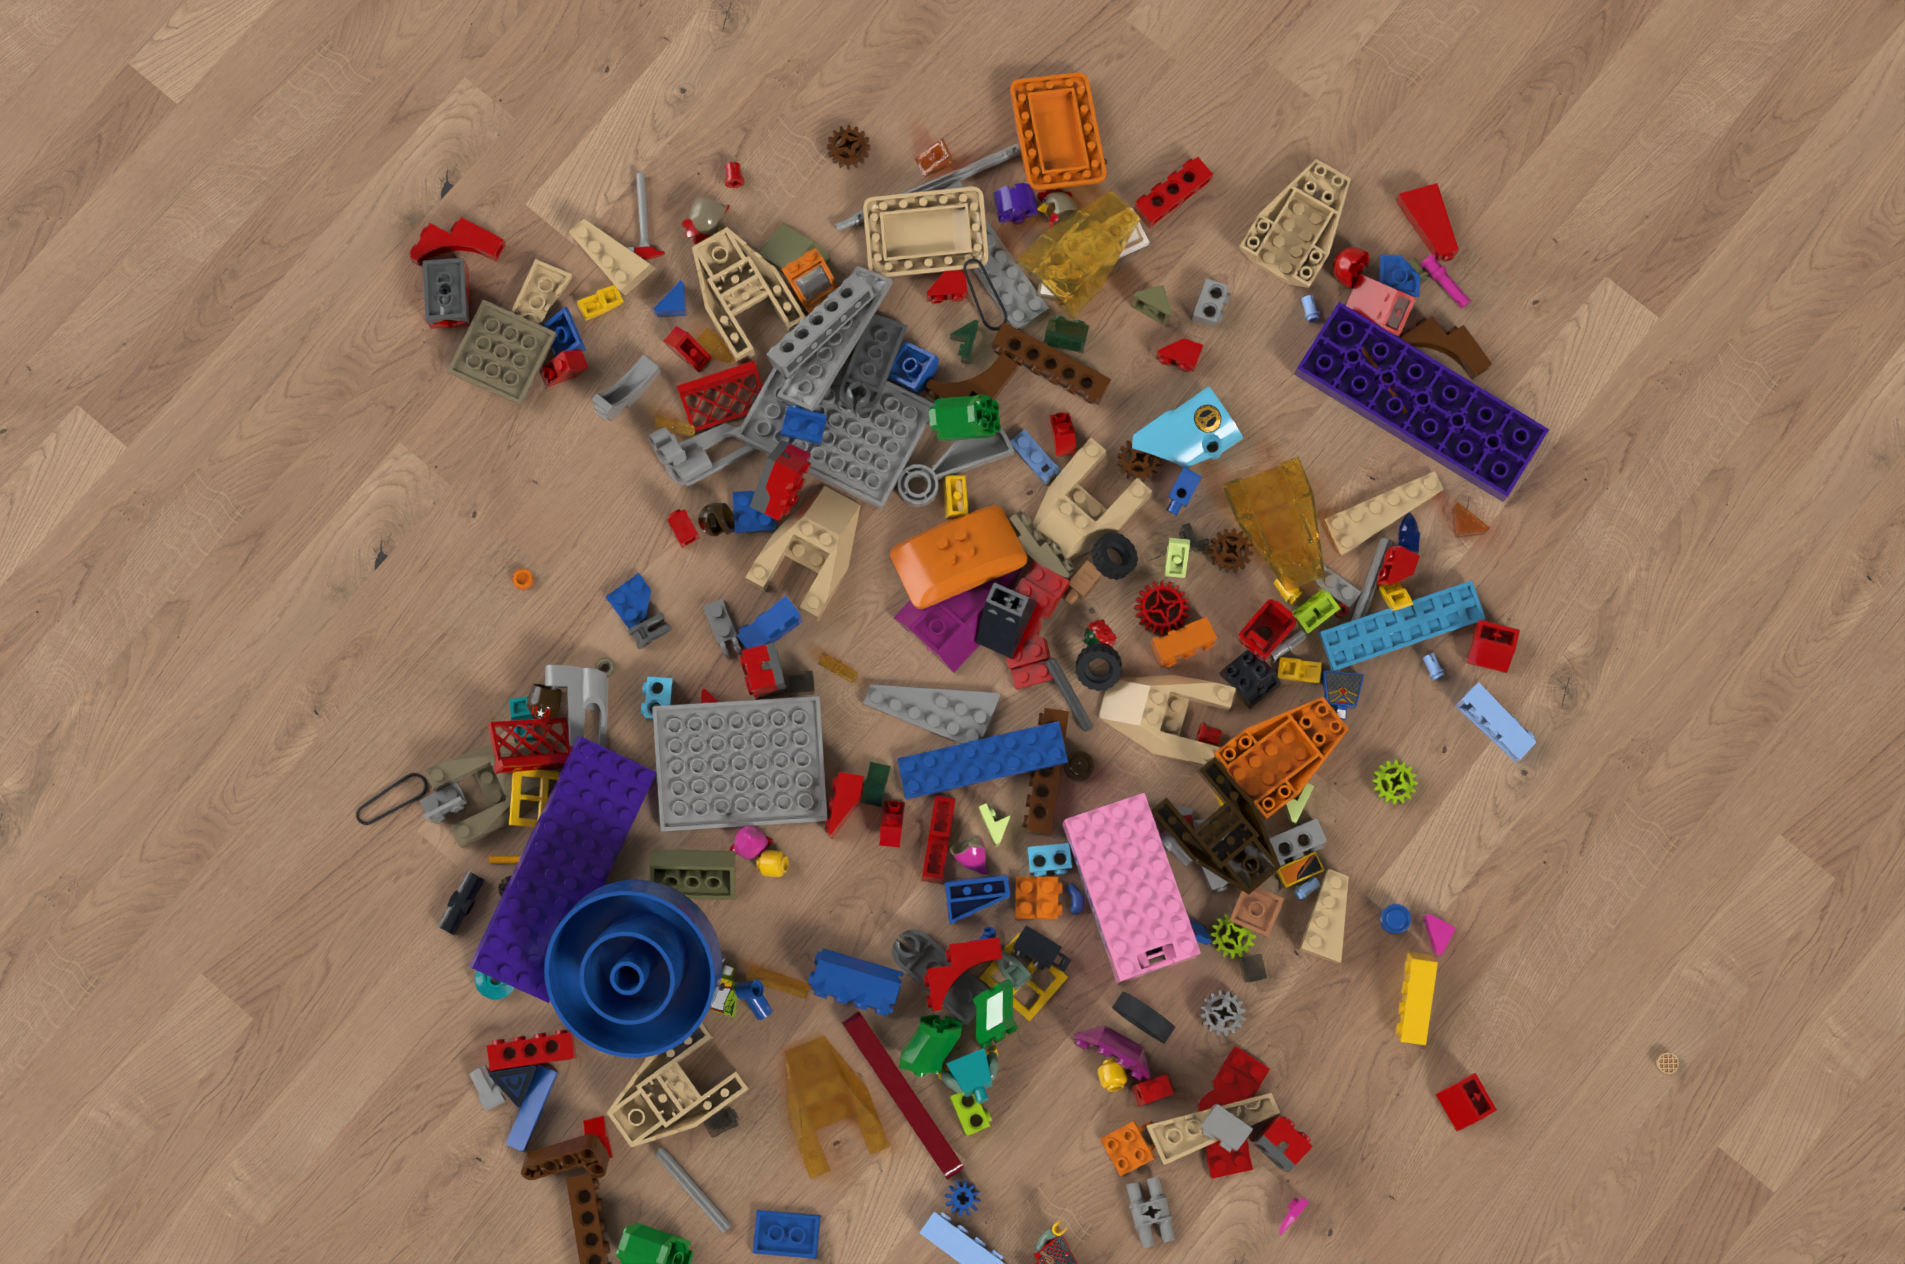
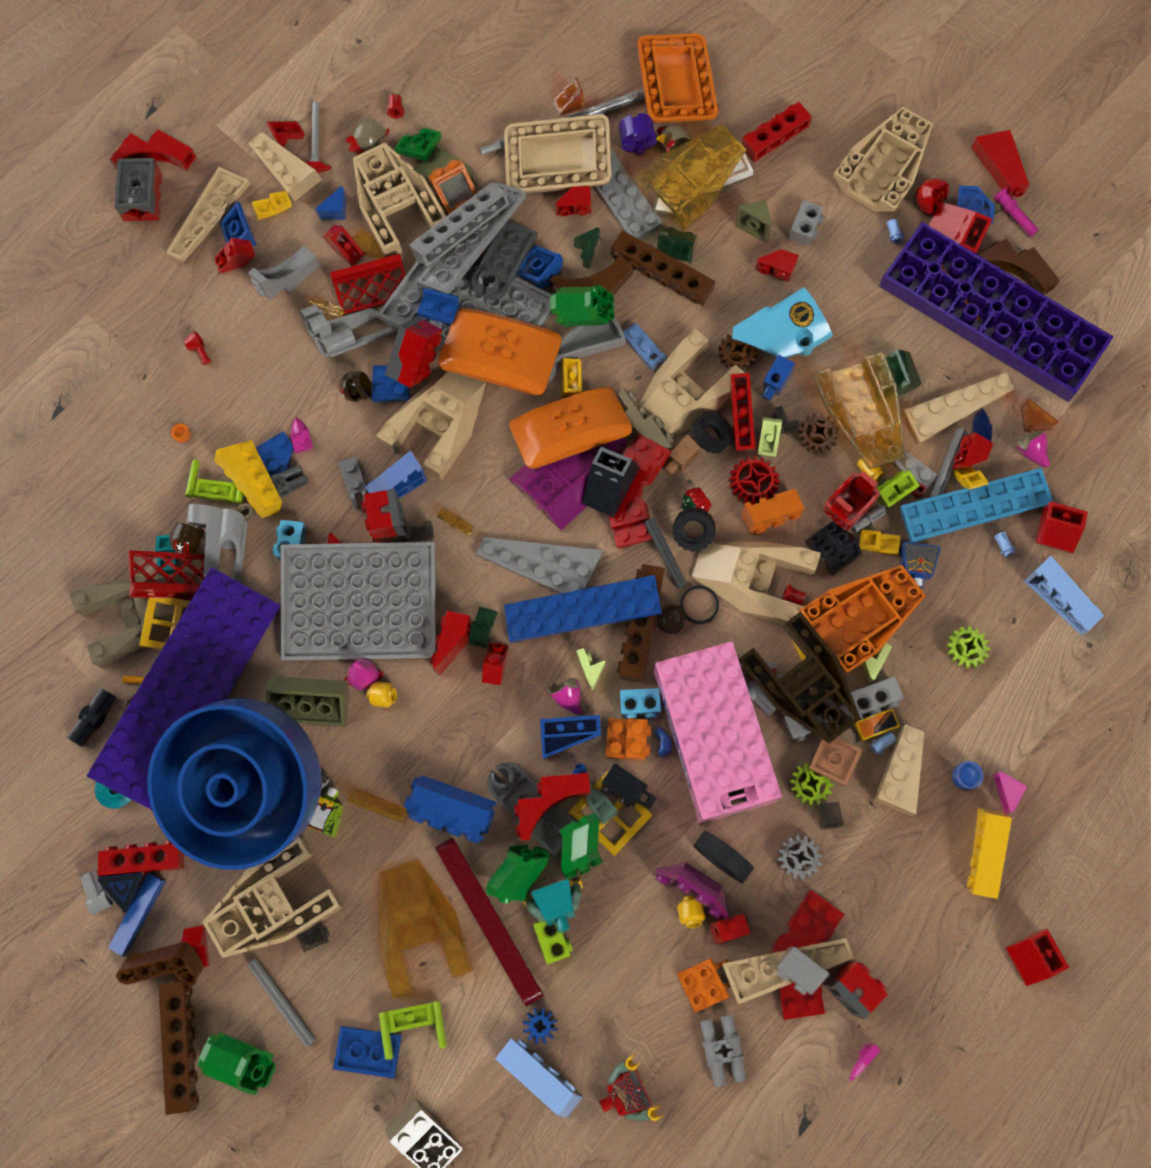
camera: 10 degrees right, 5 degrees down
(396, 808) = (36, 613): black piece -> none
(444, 802) = (86, 626): light grey bracket -> none
(502, 352) = (180, 239): dark tan plate -> none
(529, 473) = (195, 342): none -> red bar
(570, 644) = (211, 489): none -> lime plate
(609, 212) = (285, 130): none -> red slope
(609, 629) = (247, 471): none -> yellow wedge
(657, 577) = (300, 436): none -> dark pink plate
(682, 527) = (324, 392): red slope -> none
(752, 992) = (352, 815): blue piece -> none
(765, 222) = (419, 145): none -> green plate
(828, 1198) = (411, 1018): none -> lime plate
(842, 151) = (495, 87): reddish brown gear -> none
(876, 472) = (500, 350): none -> orange wedge
(938, 839) = (537, 681): red slope -> none
(975, 298) = (597, 209): black piece -> none
(1062, 434) = (670, 327): red slope -> none
(1111, 729) = (700, 587): none -> black piece
(1146, 532) = (742, 411): none -> red brick
(1200, 932) = (782, 779): blue tile -> none
(1321, 476) = (903, 371): none -> slope
(1465, 557) = (1034, 447): none -> dark pink hat

